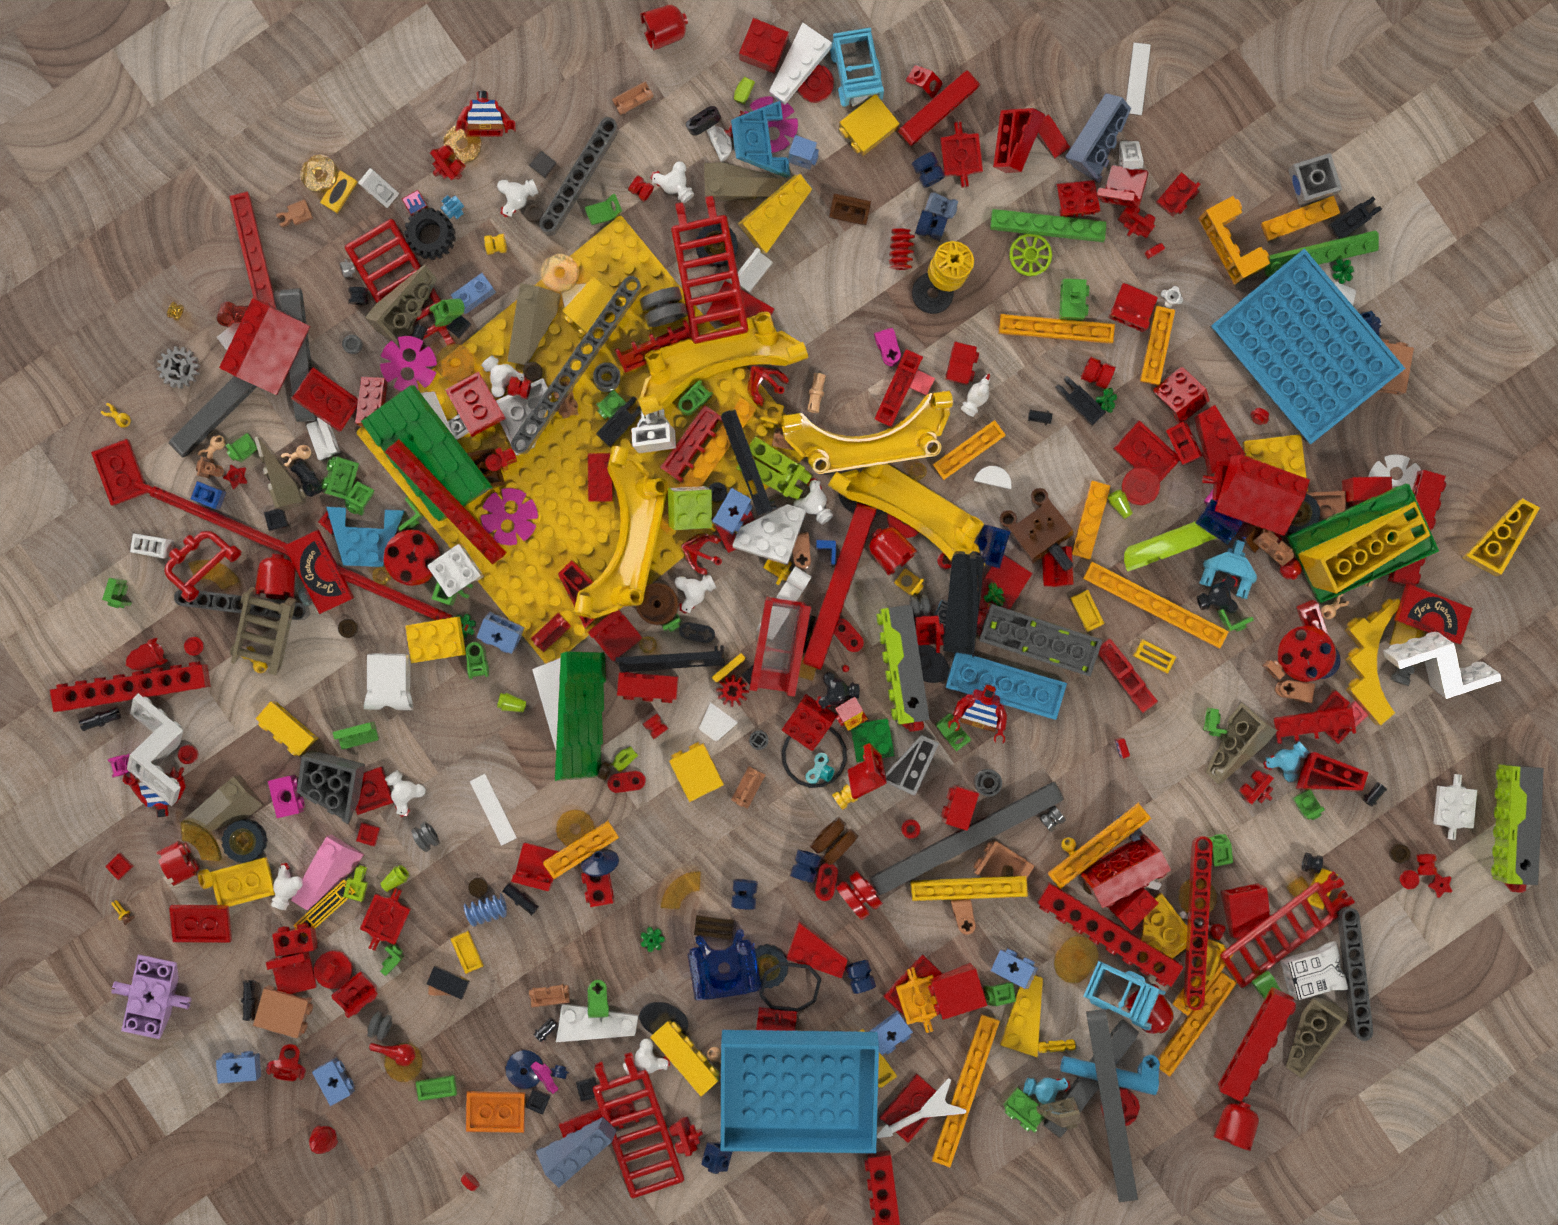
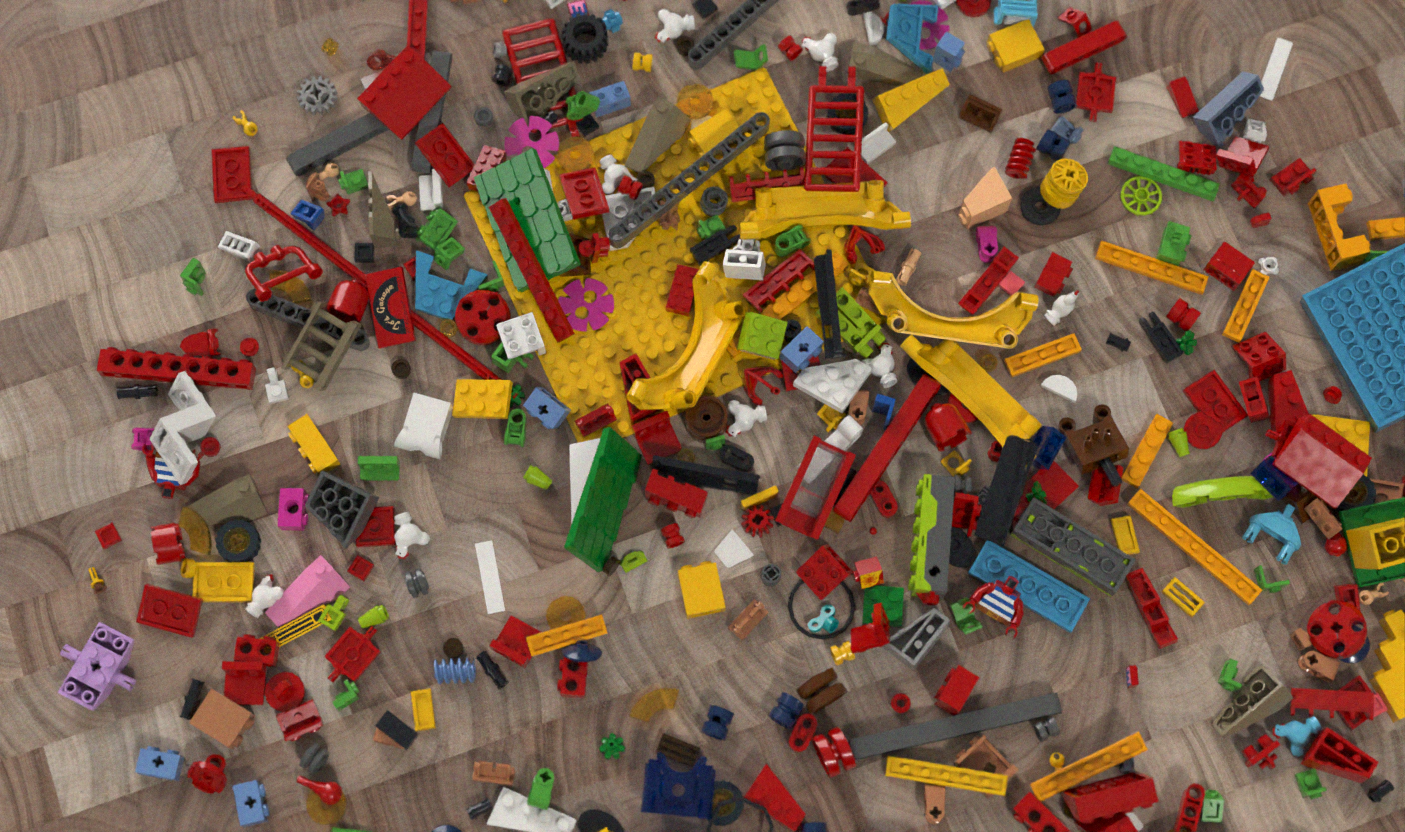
camera: 10 degrees right, 15 degrees down
(233, 682) = (276, 389): none -> white plate
(304, 597) = (370, 330): clear light blue tile -> none
(626, 782) = (628, 585): red plate -> none
(836, 691) = (859, 547): black animal -> none
(876, 305) = (985, 201): none -> light nougat slope
(996, 786) = (997, 671): dark grey wheel -> none
(1015, 138) = (1151, 87): red wedge -> none
(1219, 596) = (1260, 554): black animal -> none

